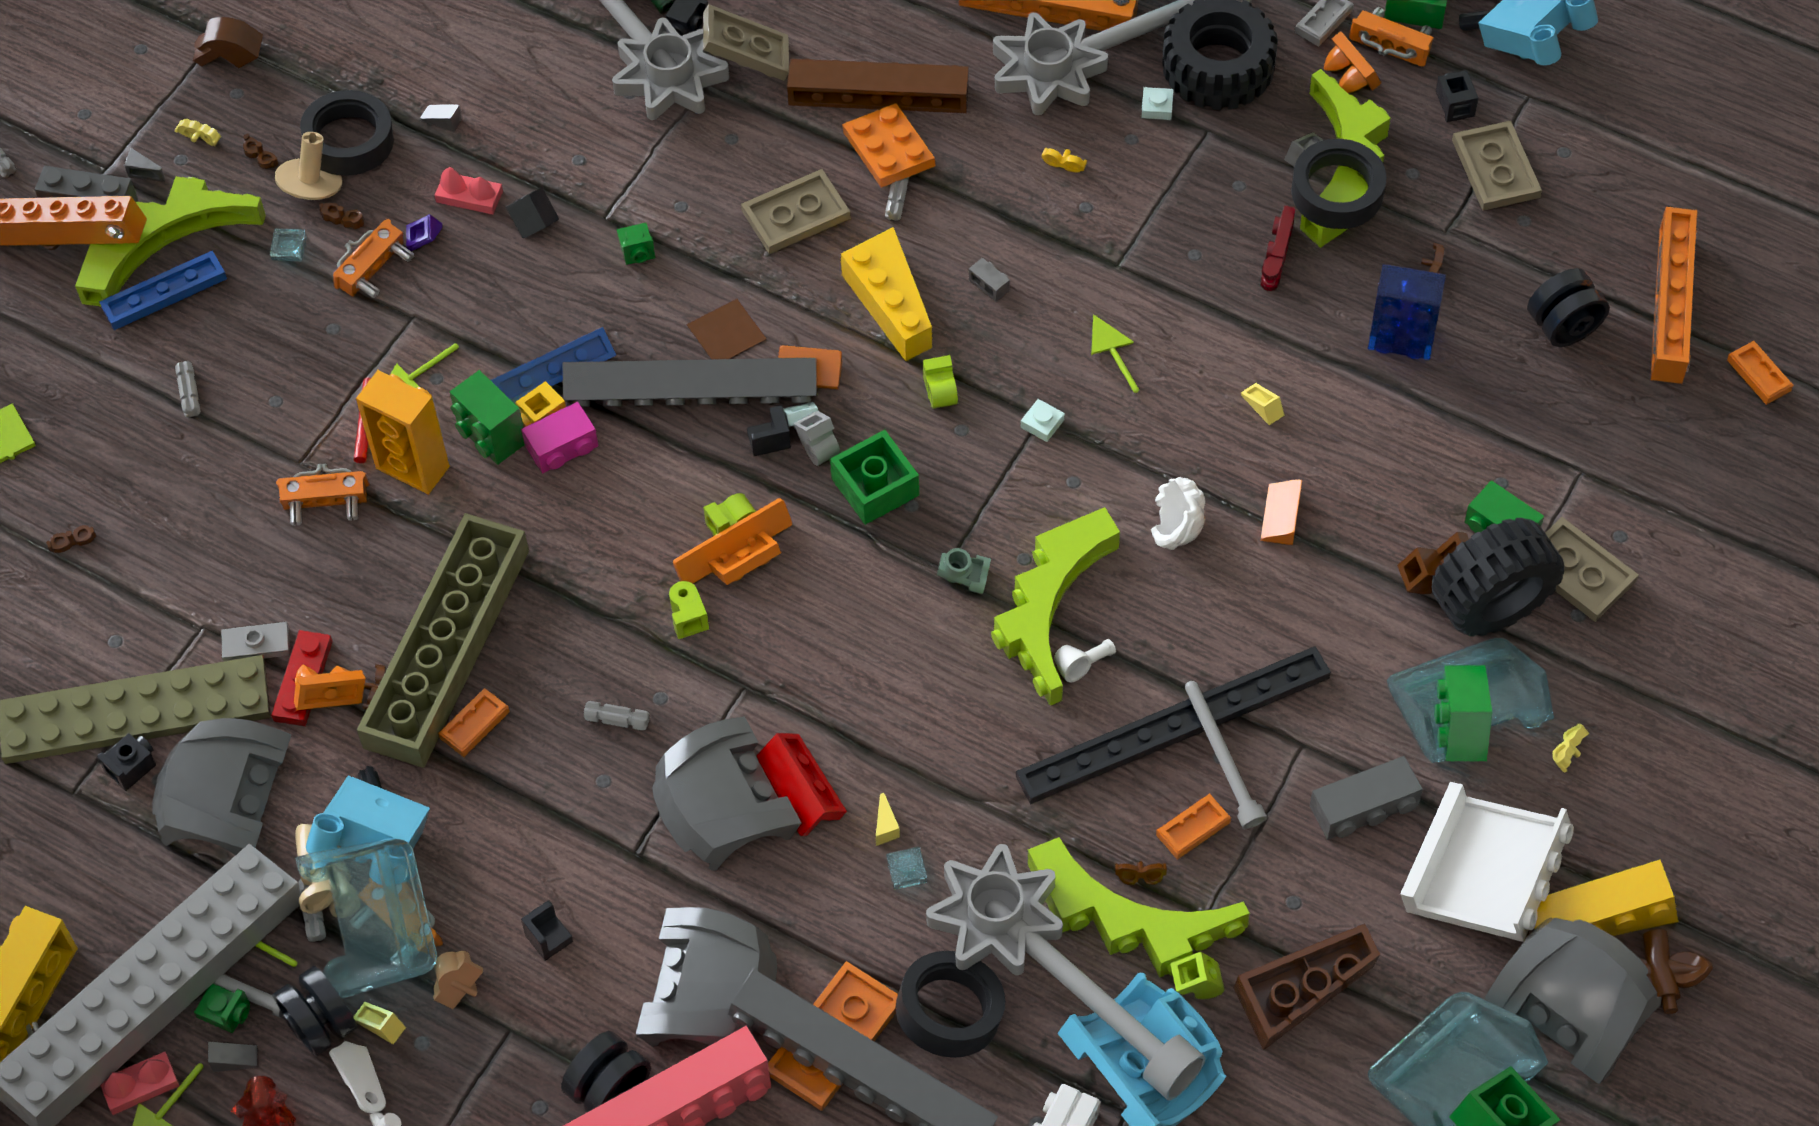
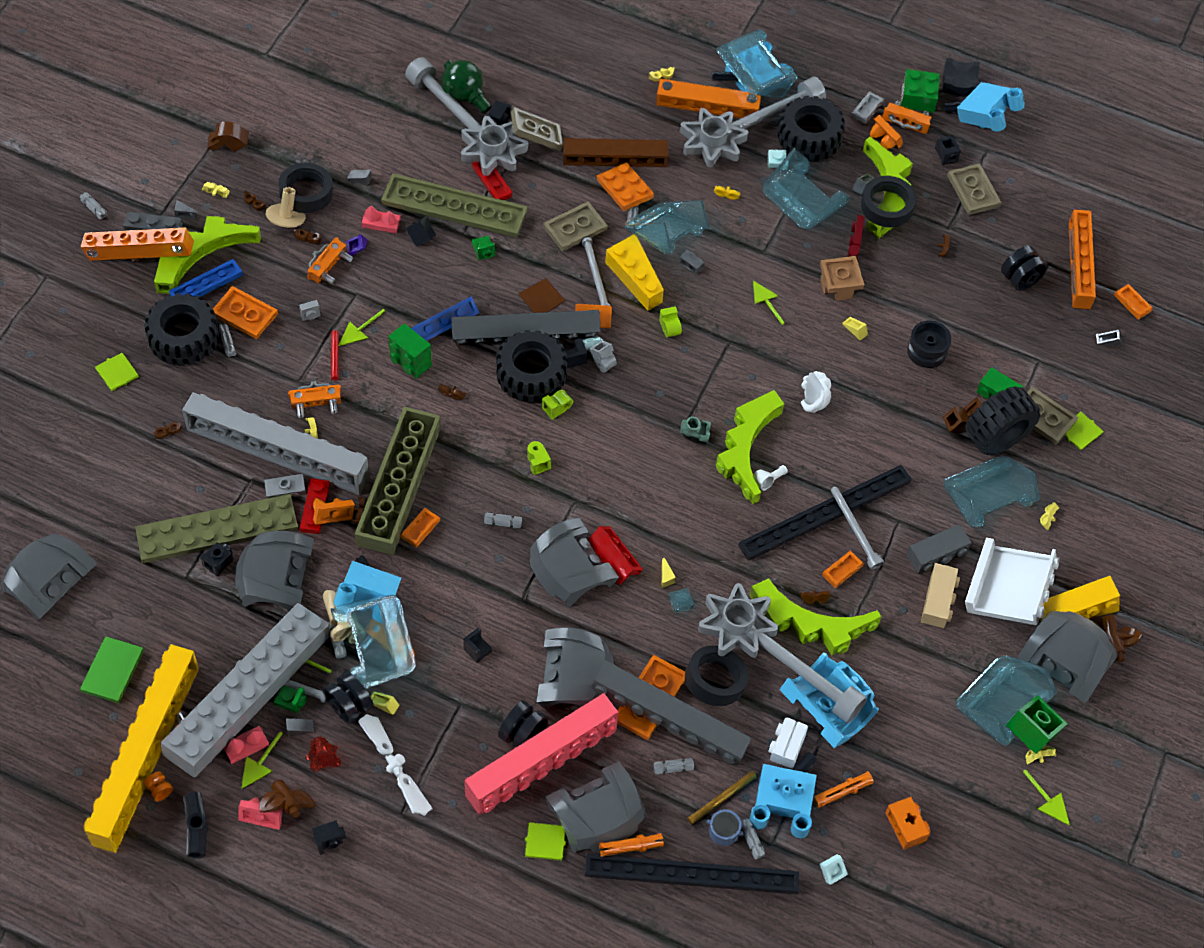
camera: 10 degrees left, 0 degrees up
(102, 337) = (180, 310): none -> black tyre
(221, 342) = (244, 312): none -> orange plate
(246, 568) = (276, 443): none -> light grey brick
(288, 244) = (277, 254): clear light blue plate -> none
(313, 550) = (313, 431): none -> light yellow piece
(330, 342) = (309, 310): none -> light grey plate
(403, 431) = (363, 360): light orange brick -> none
(455, 978) = (426, 674): medium nougat piece -> none
(539, 404) = (441, 344): yellow brick -> none
(555, 492) = (453, 393): none -> reddish brown piece
(560, 437) = (452, 361): dark pink brick -> none
(595, 169) = (454, 205): none -> olive plate
(665, 134) = (493, 182): none -> red plate
(686, 417) = (531, 346): none -> black tyre
(737, 548) = (563, 421): orange bracket -> none
(813, 240) = (587, 243): none -> light grey bar
(874, 477) = (639, 377): green brick -> none
(953, 211) = (669, 222): none -> clear light blue windscreen
(1042, 420) = (731, 342): light aqua plate -> none
(1188, 167) = (798, 195): none -> clear light blue windscreen
(1198, 975) = (855, 653): lime leg -> none
(1244, 313) = (841, 277): none -> medium nougat panel
(1281, 512) = (873, 389): slope -> none
(1300, 983) = (909, 657): reddish brown wedge -> none
(1360, 879) = (940, 595): none -> tan brick
(1386, 435) = (929, 344): none -> black wheel
(1406, 311) = (934, 273): clear blue brick -> none
(1464, 713) = (991, 498): green brick -> none
(1647, 600) = (1083, 432): none -> lime piece
(1712, 436) = (1110, 338): none -> flat silver piece

